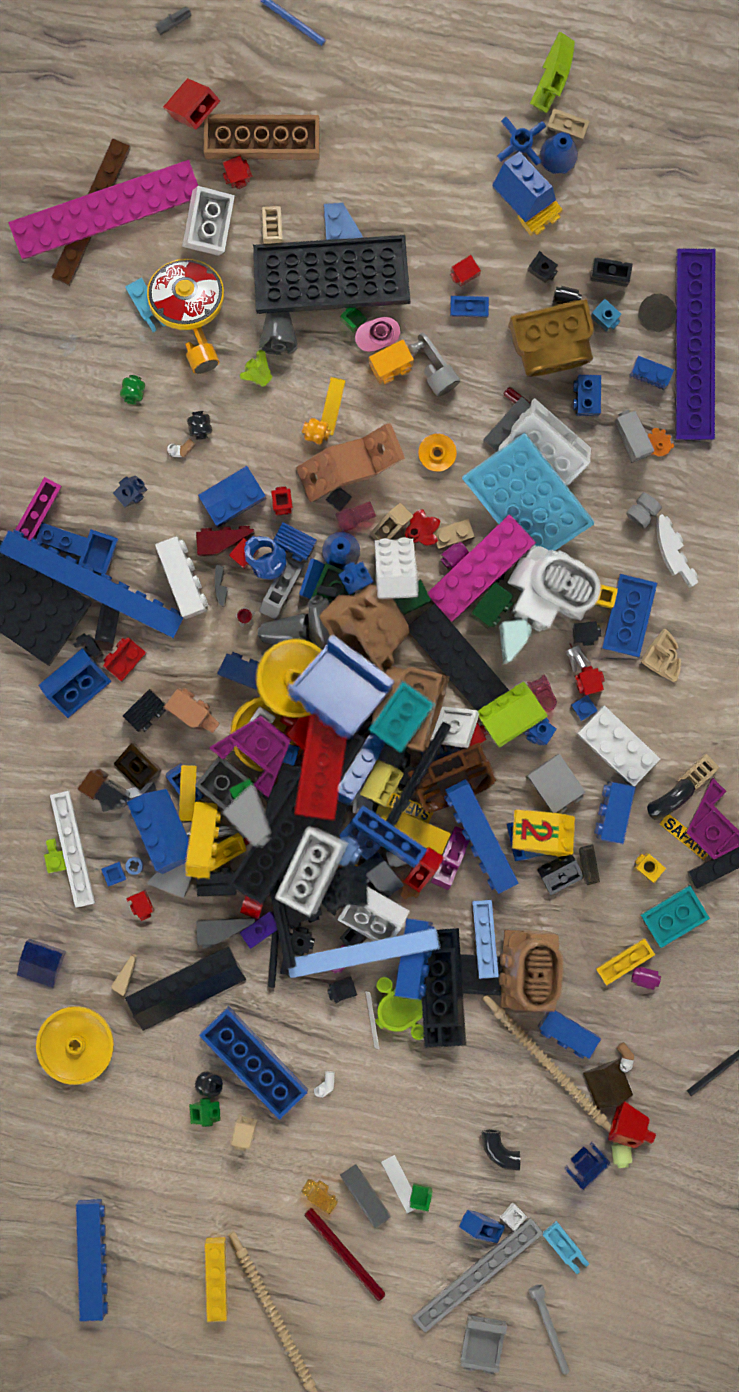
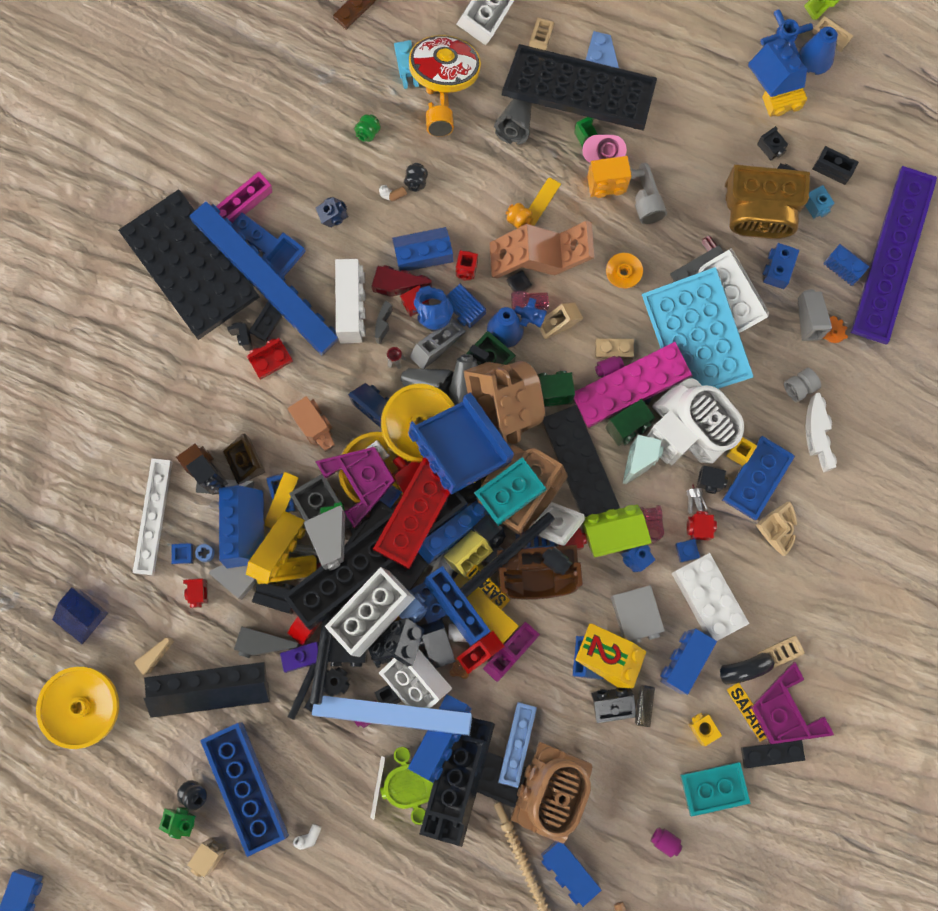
camera: 20 degrees right, 10 degrees down
(54, 859) = (132, 521): lime plate -> none
(74, 683) = (215, 365): blue slope -> none
(145, 710) = (270, 411): black brick -> none
(257, 370) = (484, 146): lime rock -> none
(311, 578) = (470, 339): blue slope -> none
(342, 989) = (358, 745): black bracket -> none
(355, 577) = (510, 349): blue brick -> none
(362, 531) = (530, 314): none -> blue piece
(396, 568) = (551, 354): white brick -> none
(425, 526) = (589, 333): red plate -> none
(465, 271) = (701, 124): red brick -> none
(466, 764) = (556, 560): none -> black brick
(469, 306) = (695, 155): blue plate -> none
(481, 835) = (548, 640): blue brick -> none
(625, 961) = (650, 817): yellow plate -> none
(657, 313) = (866, 216): clear smoke tile -> none

